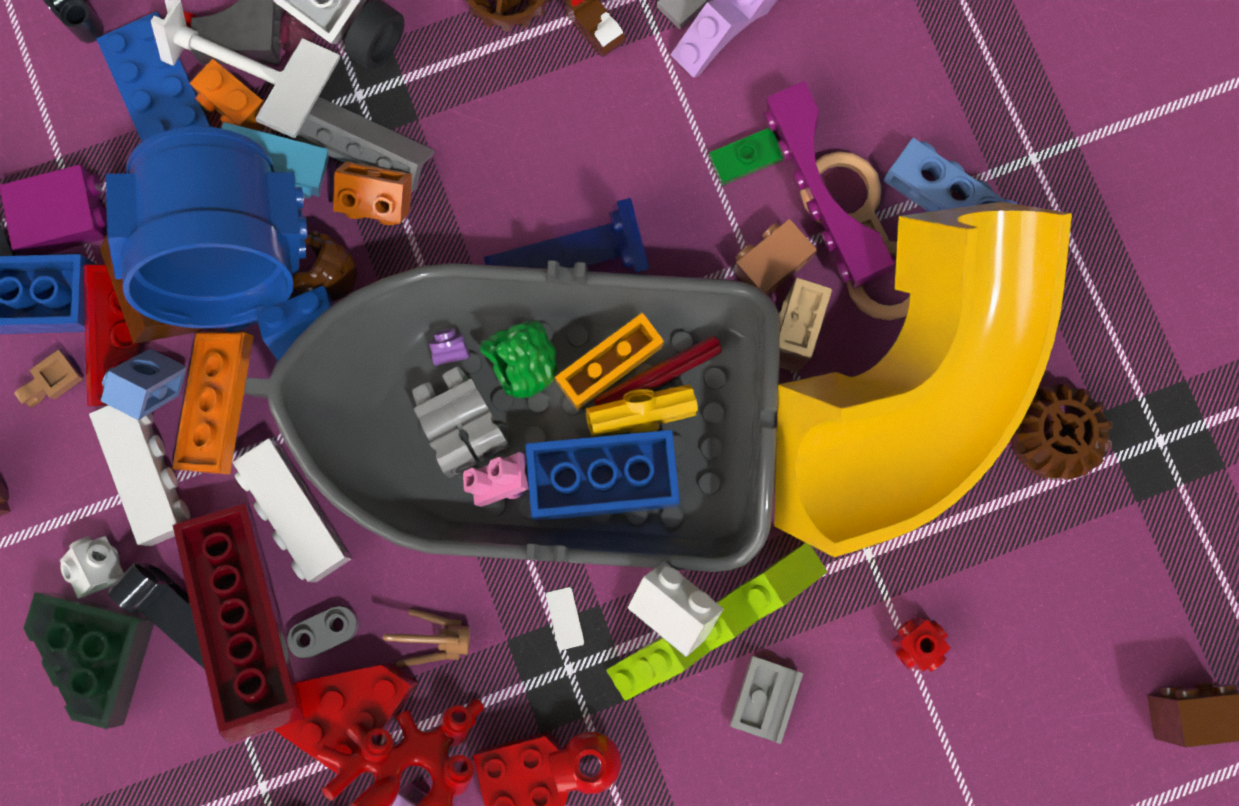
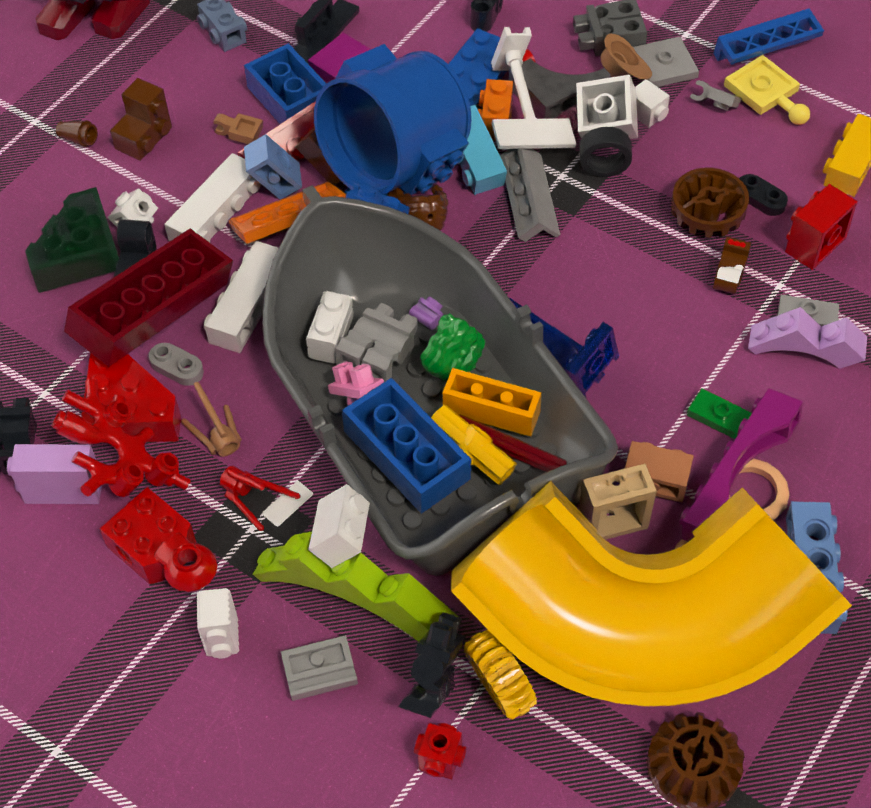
camera: 55 degrees right, 25 degrees down
(372, 193) = (498, 213): orange brick -> none
(406, 458) = (329, 326): none -> white brick
(516, 655) = (240, 483): none -> red plant
(671, 773) = (217, 623): none -> white brick
(856, 606) = (433, 666): none -> black hips
(906, 552) = (500, 674): none -> yellow gear

